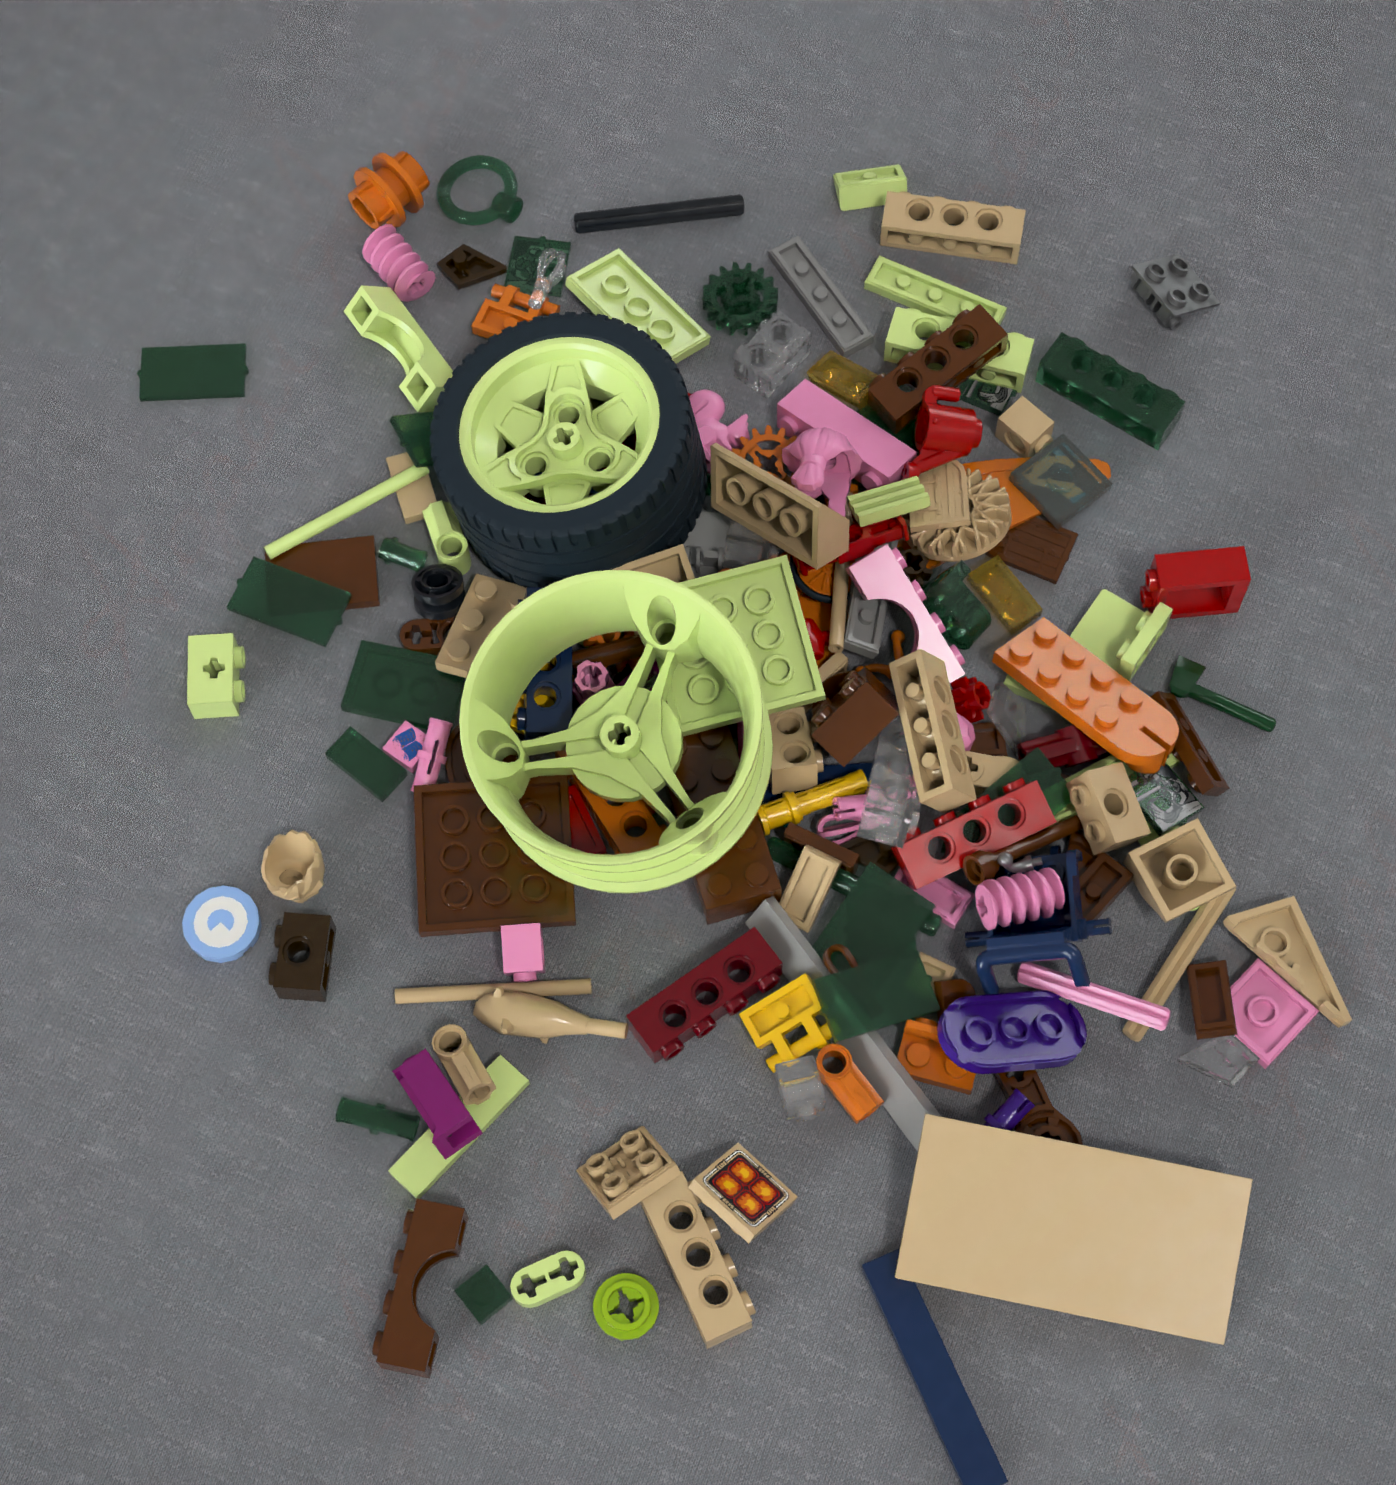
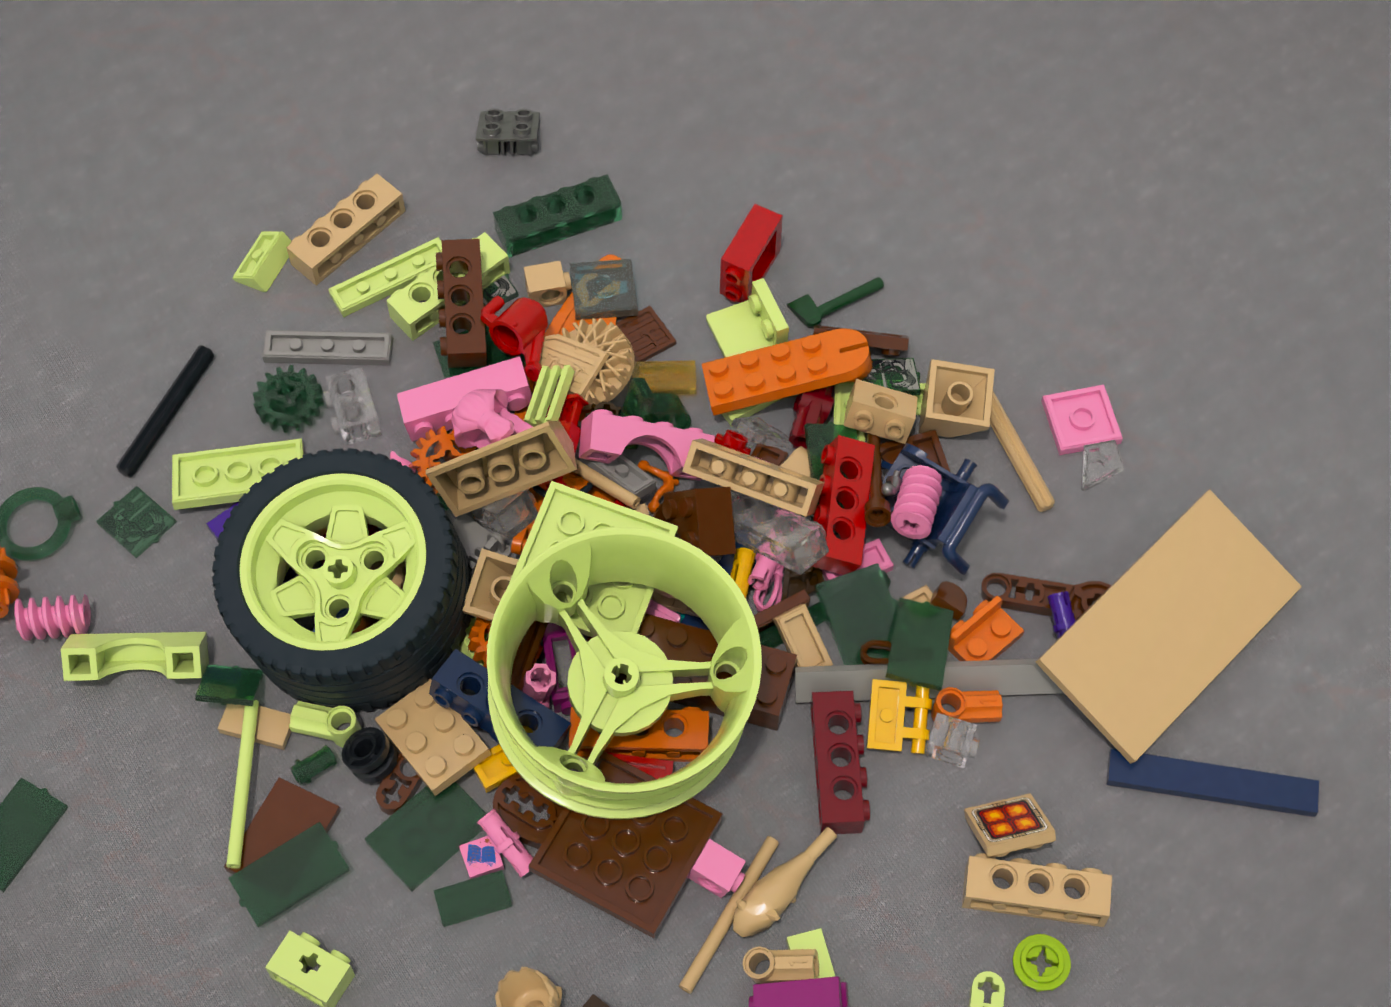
camera: 60 degrees left, 5 degrees down
(468, 267) = (97, 569): dark brown piece -> none
(499, 315) = (175, 569): orange plate -> none
(542, 284) = (164, 523): clear piece -> none
(628, 1171) = (944, 896): tan tile -> none
(842, 378) = (414, 370): clear yellow plate -> none
(1011, 1032) = (1002, 575): dark purple tile -> none
(1094, 996) = (1018, 501): bright pink axle -> none
(1211, 999) = (1056, 440): reddish brown tile -> none
(1286, 945) = (1045, 373): tan wing -> none

